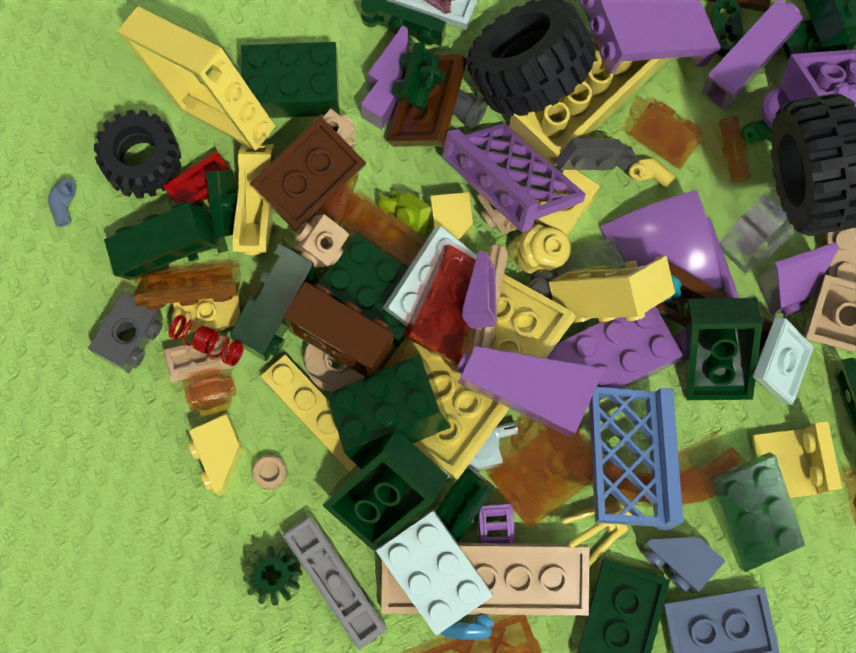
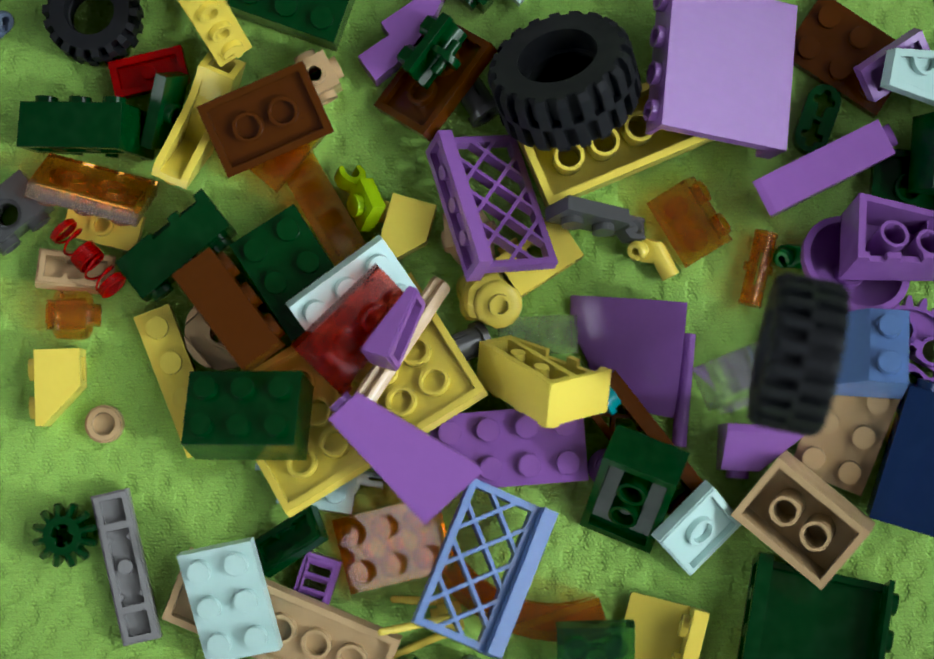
camera: 20 degrees right, 10 degrees up
(320, 241) = (248, 201): tan brick -> none
(385, 490) = (210, 499): dark green brick -> none

